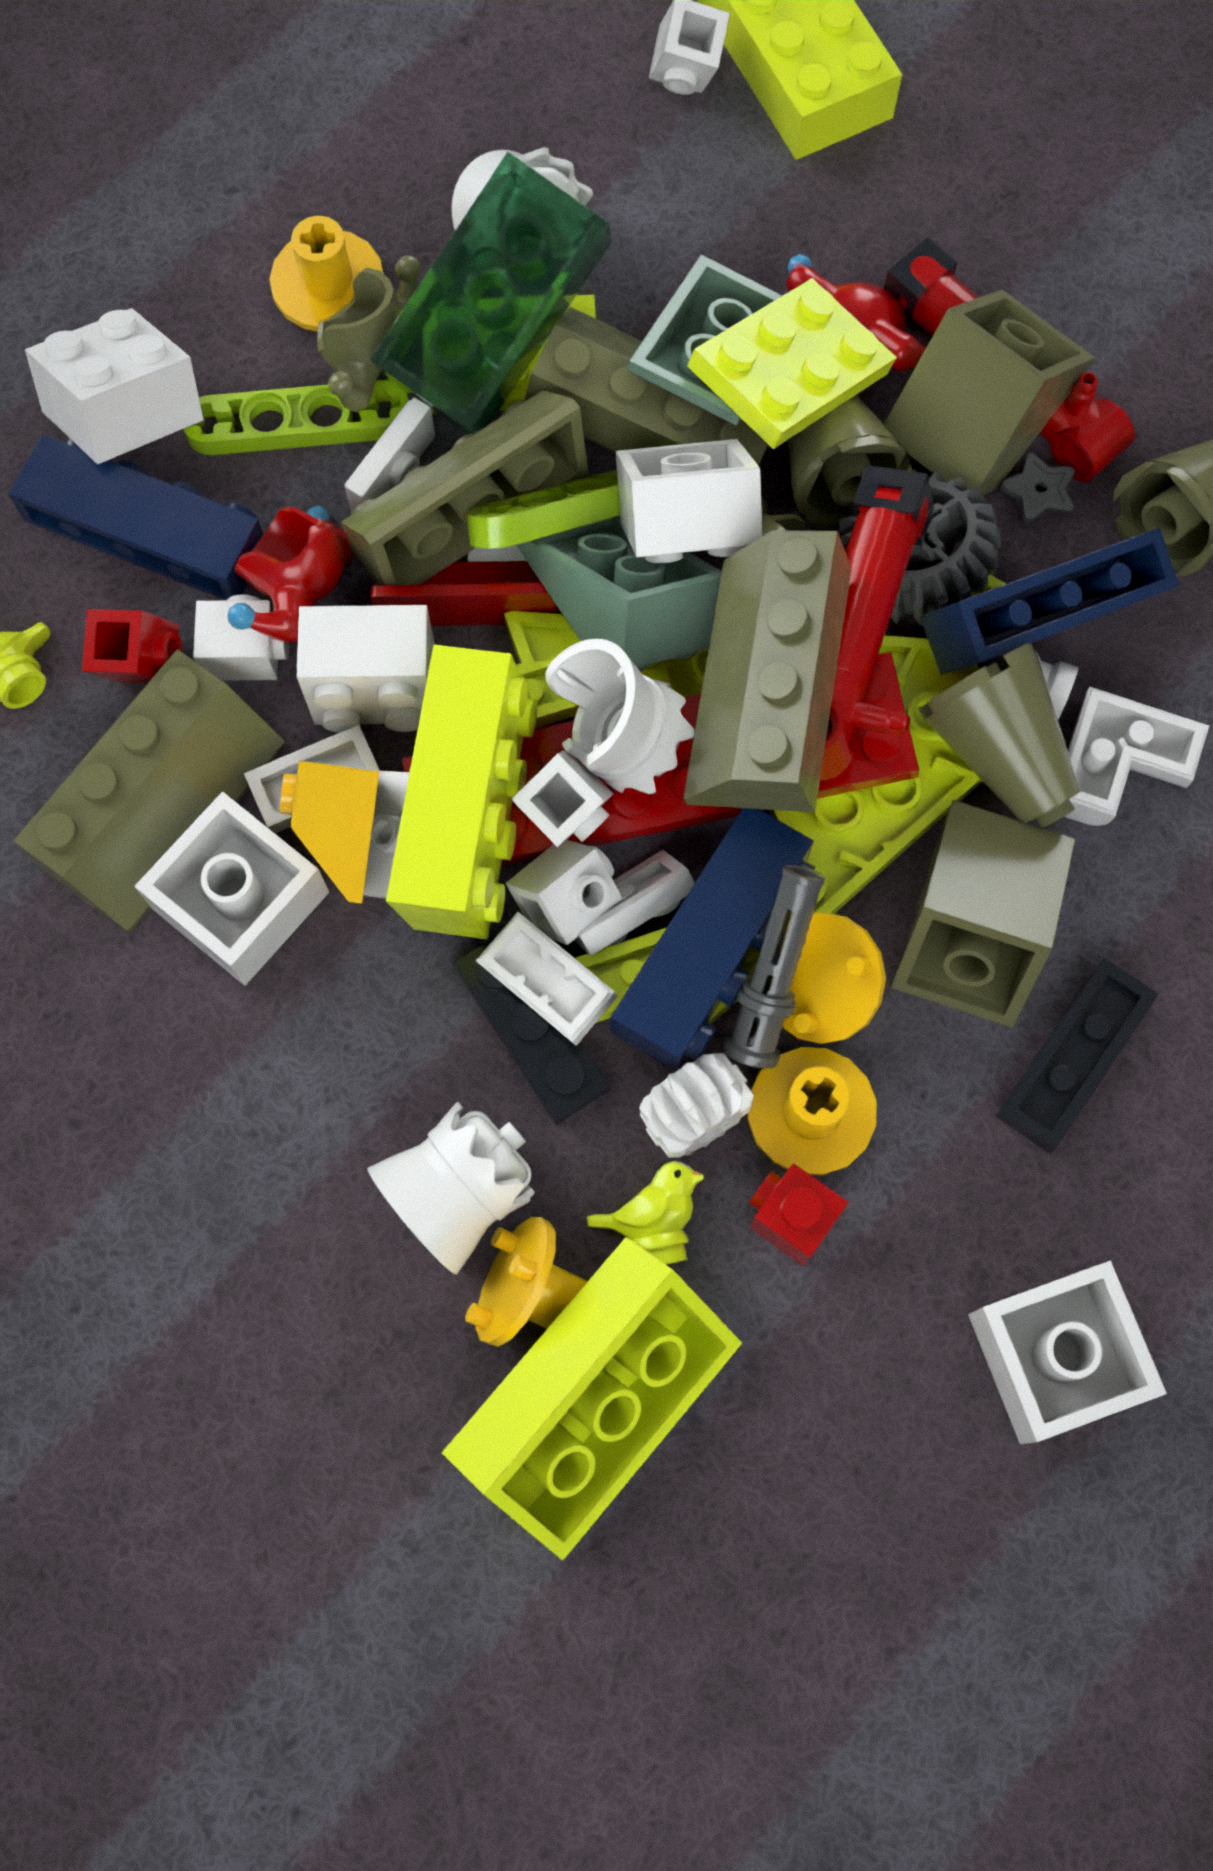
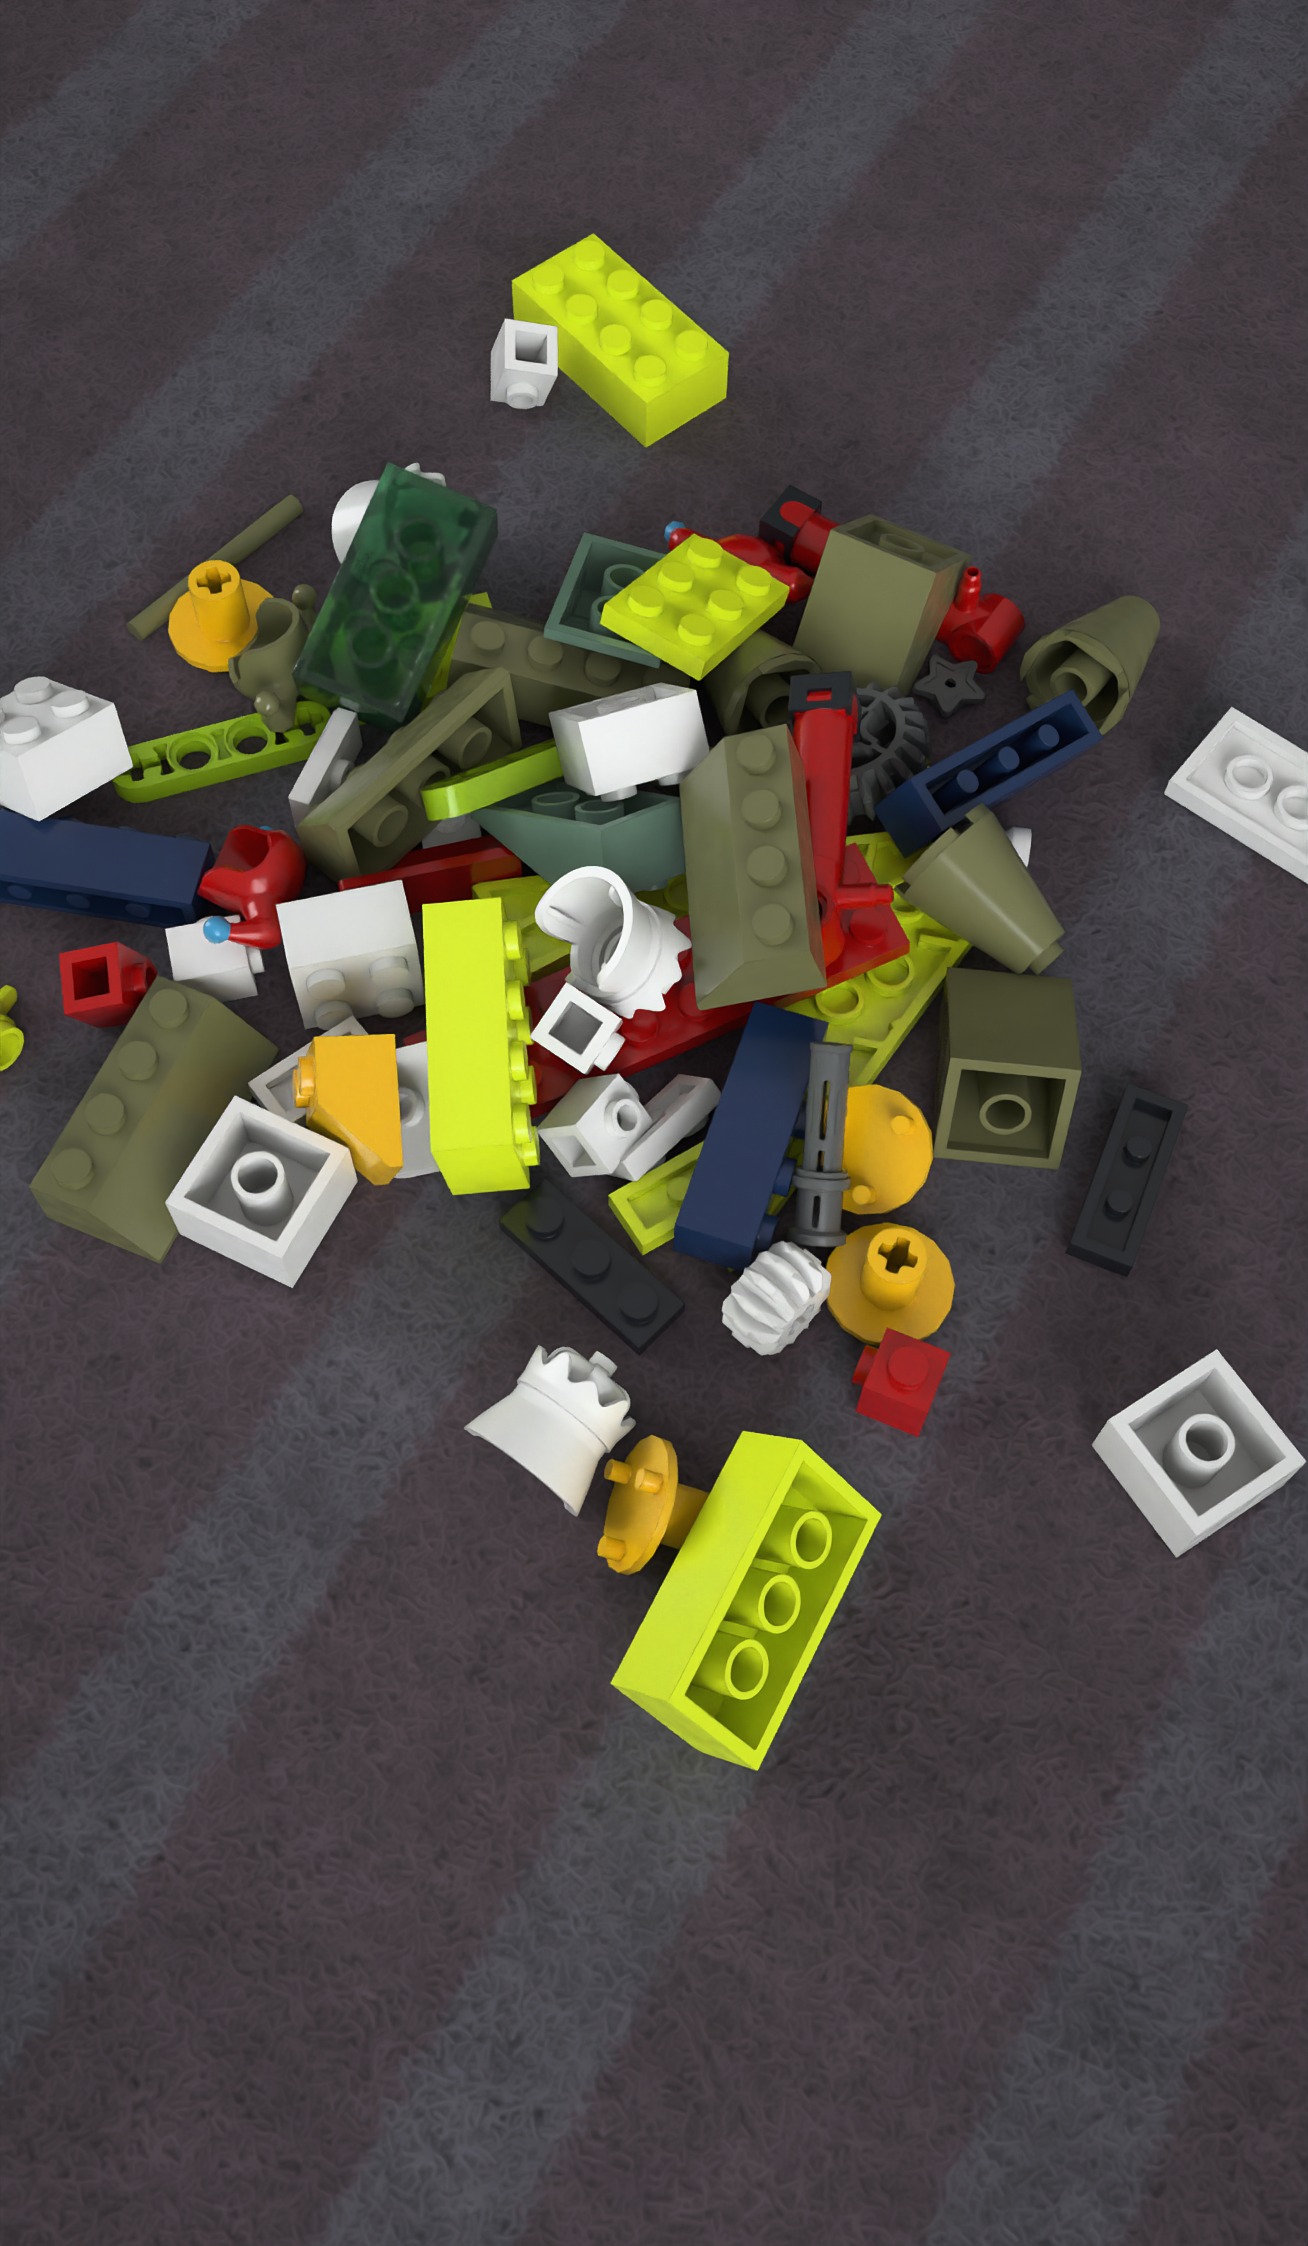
camera: 15 degrees left, 10 degrees down
(339, 209) = (233, 552): none -> olive bar
(547, 978) = (599, 1209): white plate -> none
(657, 1213) = (764, 1406): neon yellow animal -> none
(1126, 736) = (1096, 882): white brick -> none

